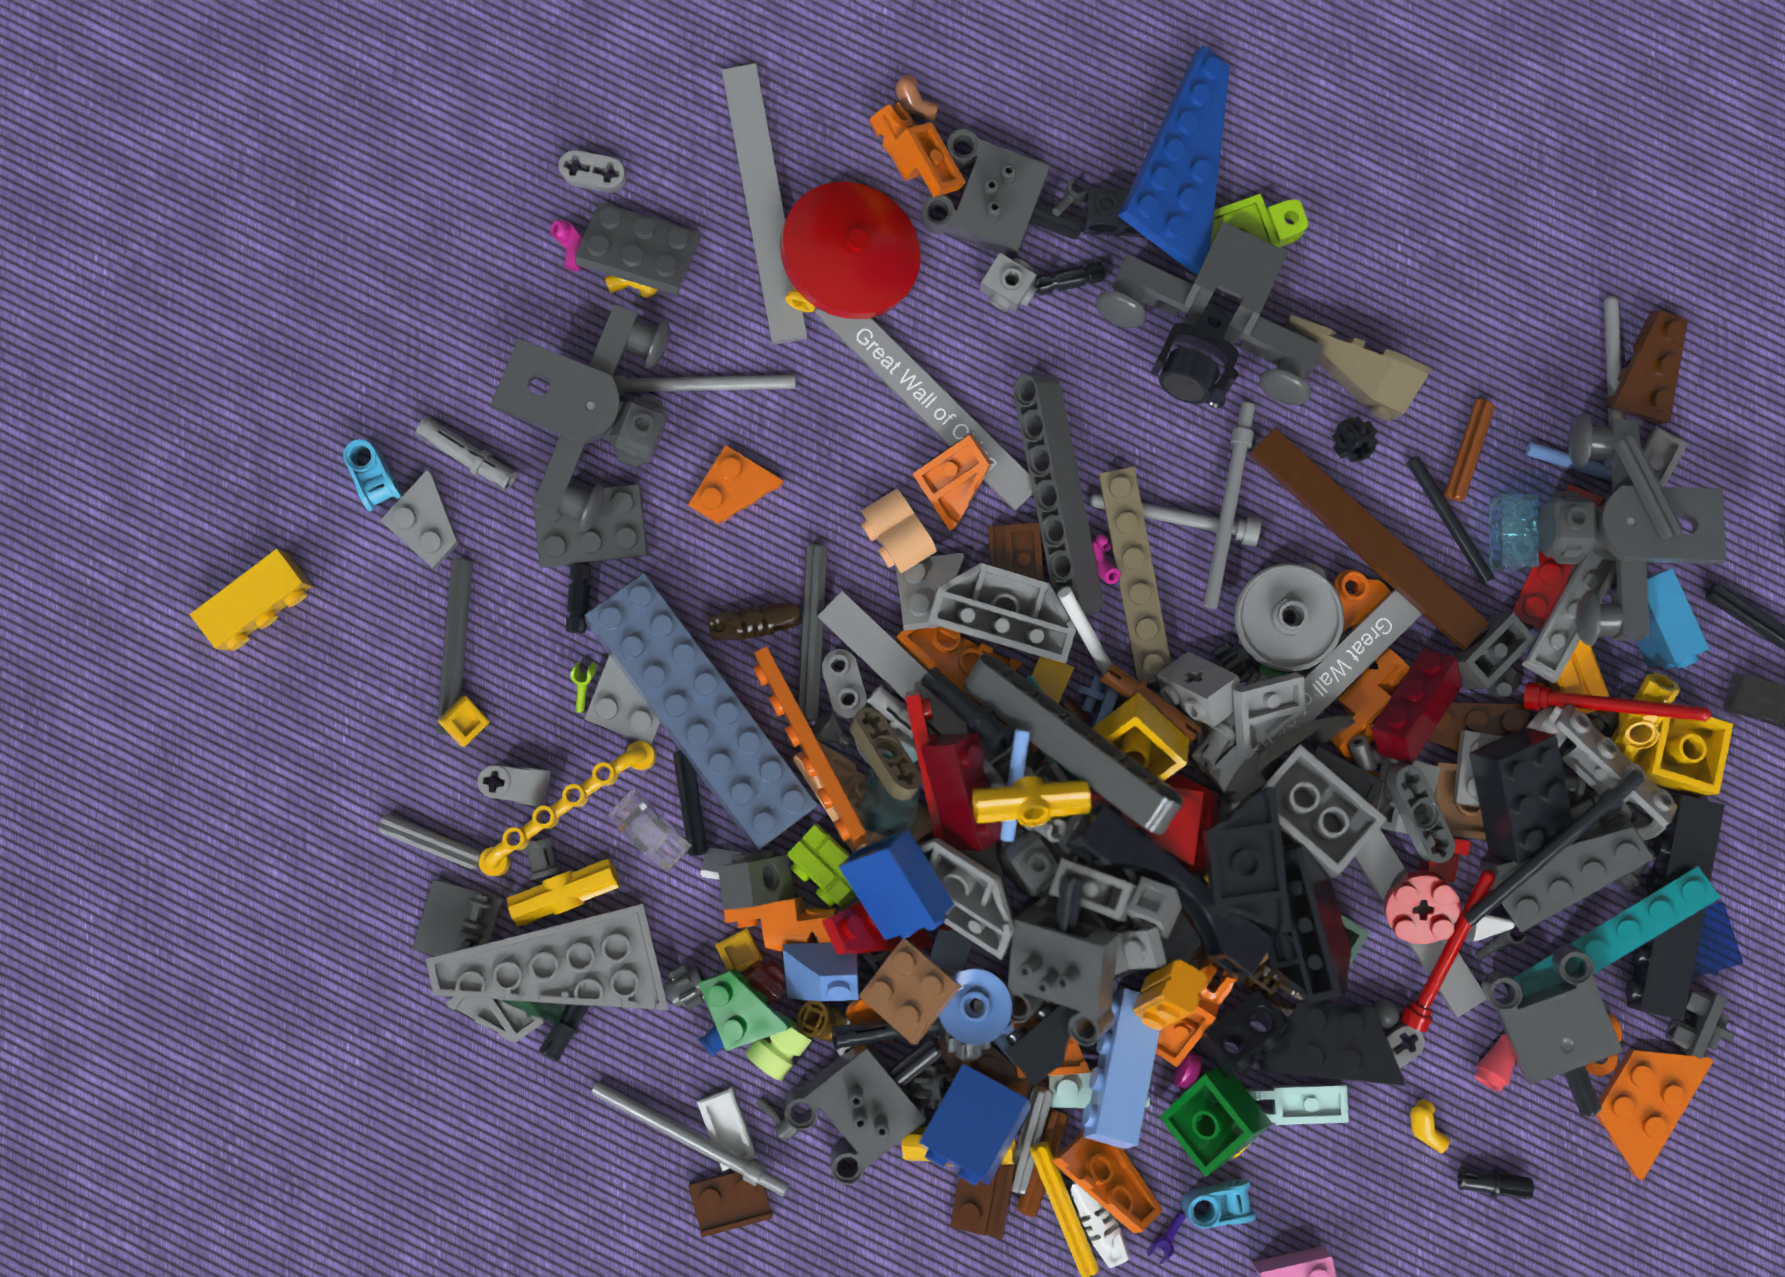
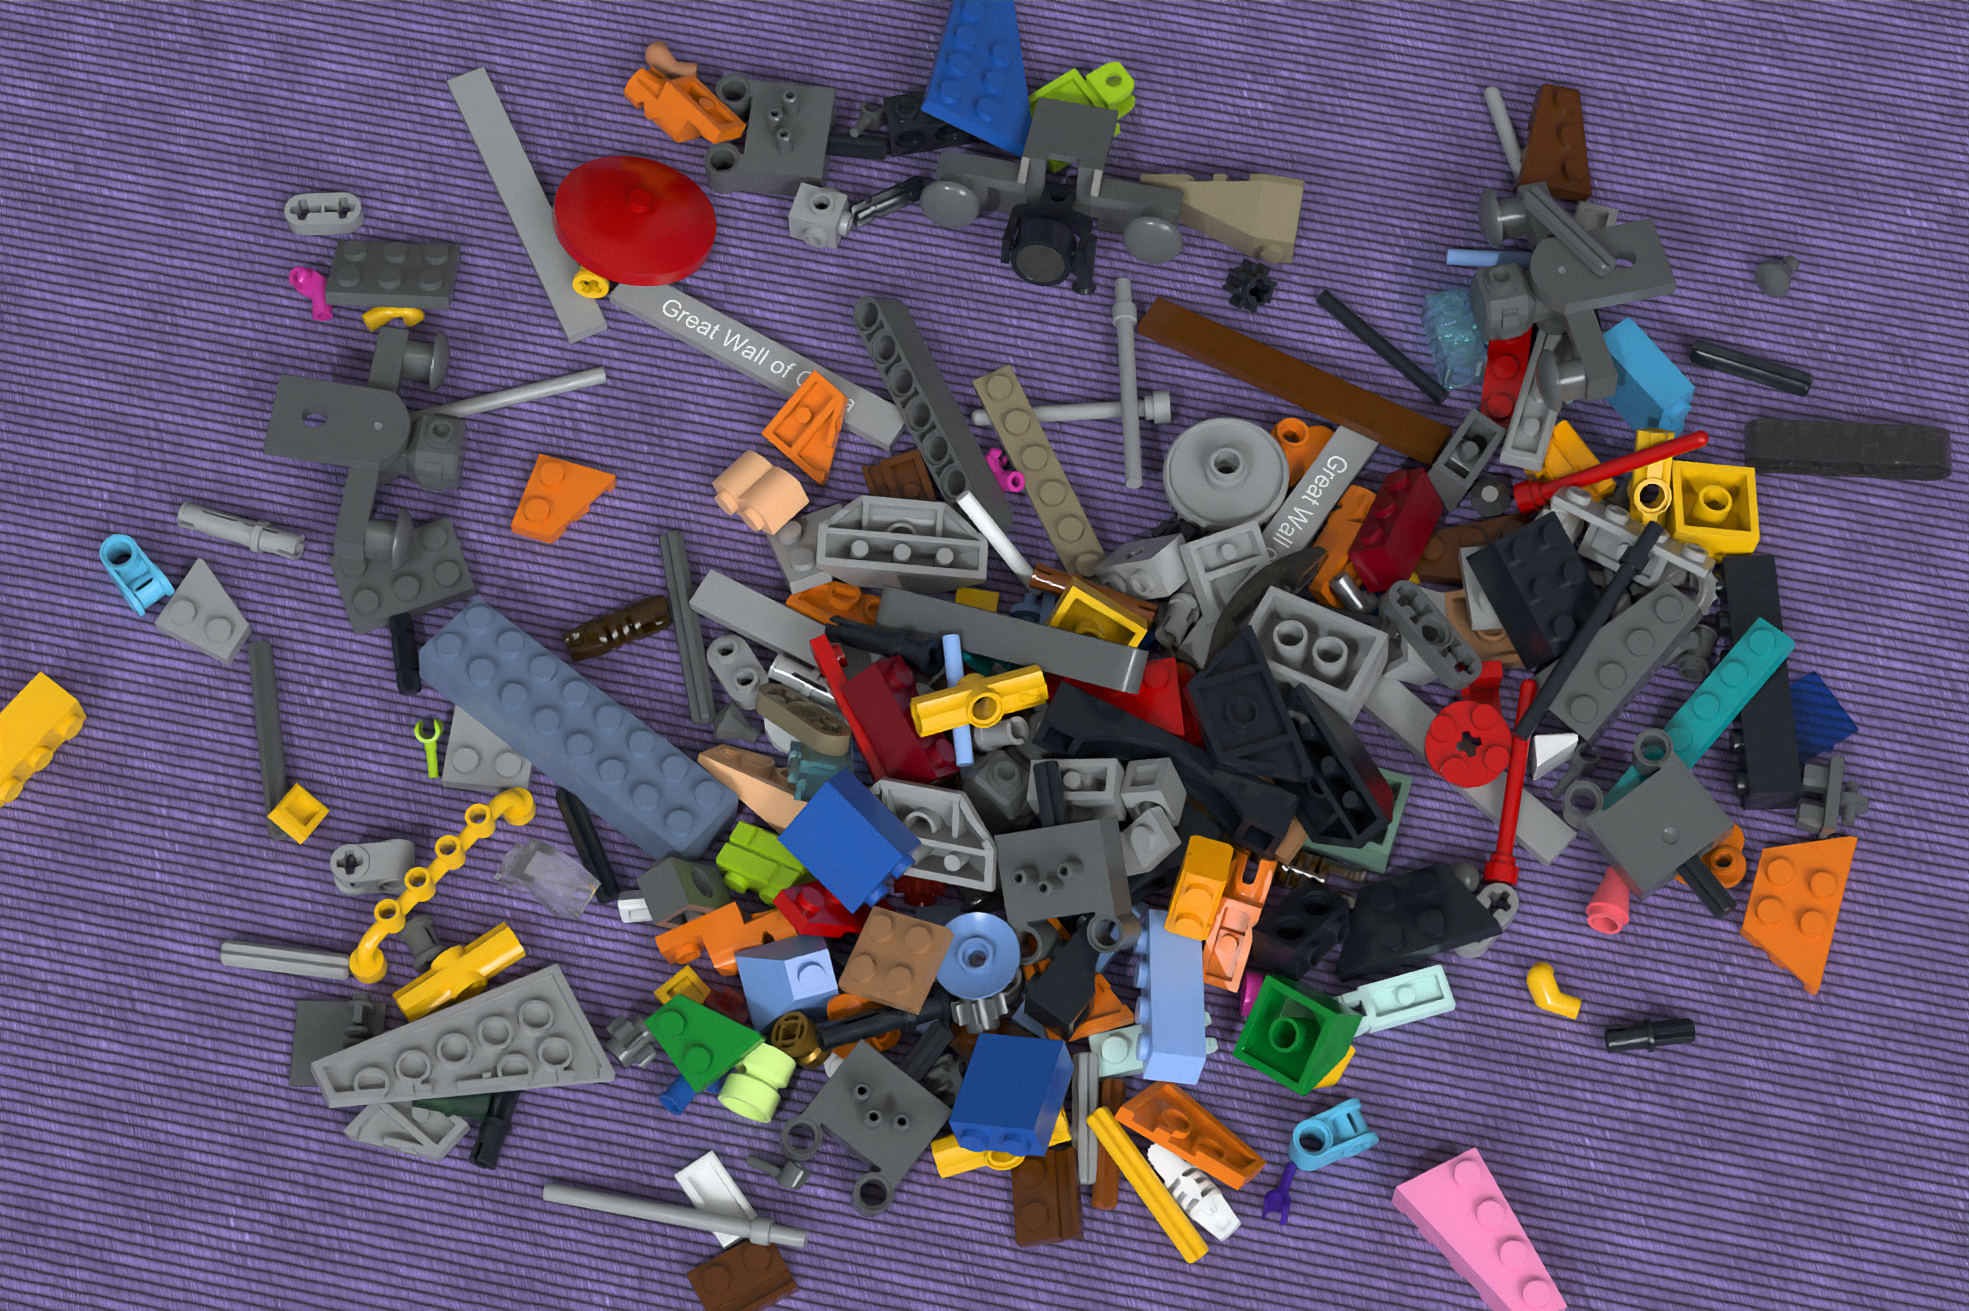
camera: 15 degrees left, 20 degrees down
(815, 760) = (721, 740): orange plate -> none
(1469, 450) = (1381, 271): dark orange axle -> none

